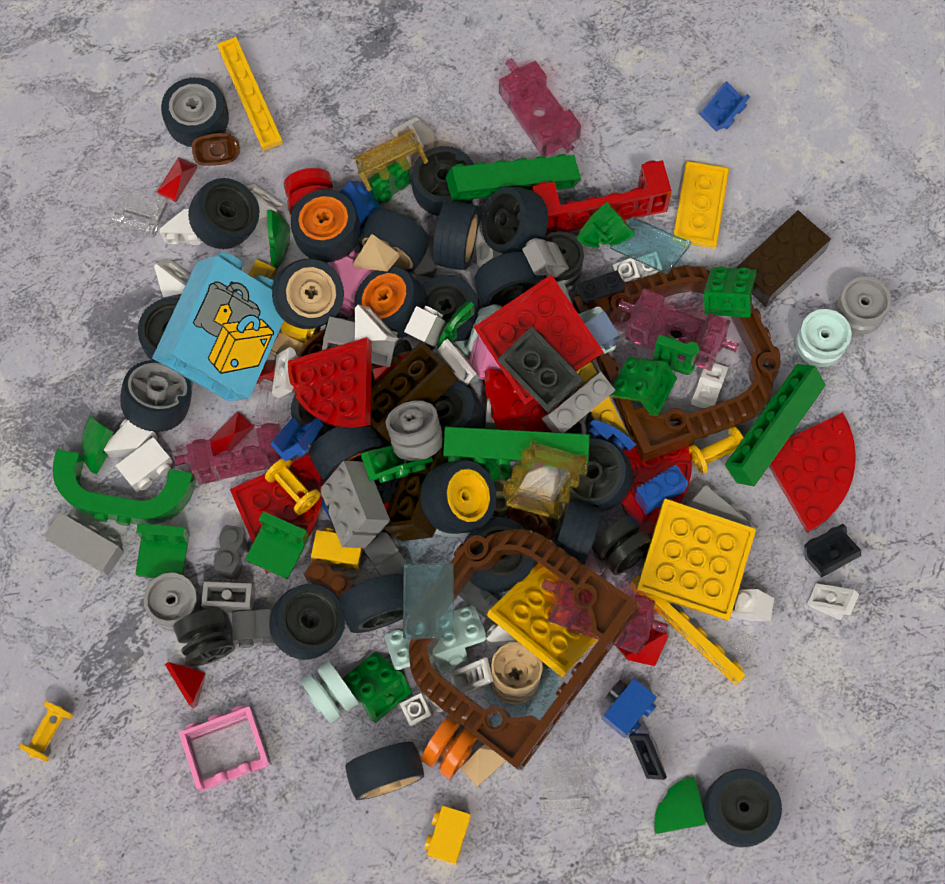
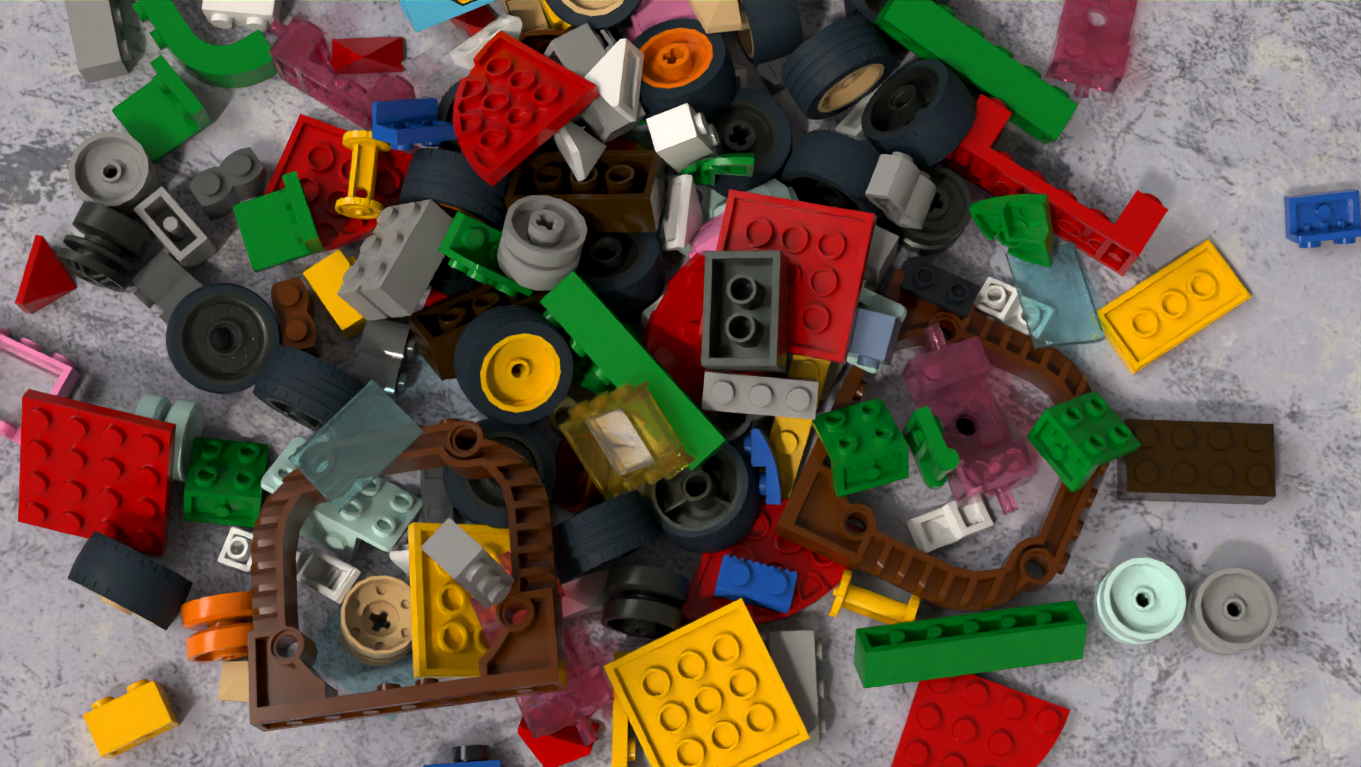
camera: 40 degrees right, 5 degrees up
(314, 738) = (95, 471): none -> red plate
(385, 377) = (578, 149): none -> white slope
(548, 589) = (468, 564): none -> light grey brick

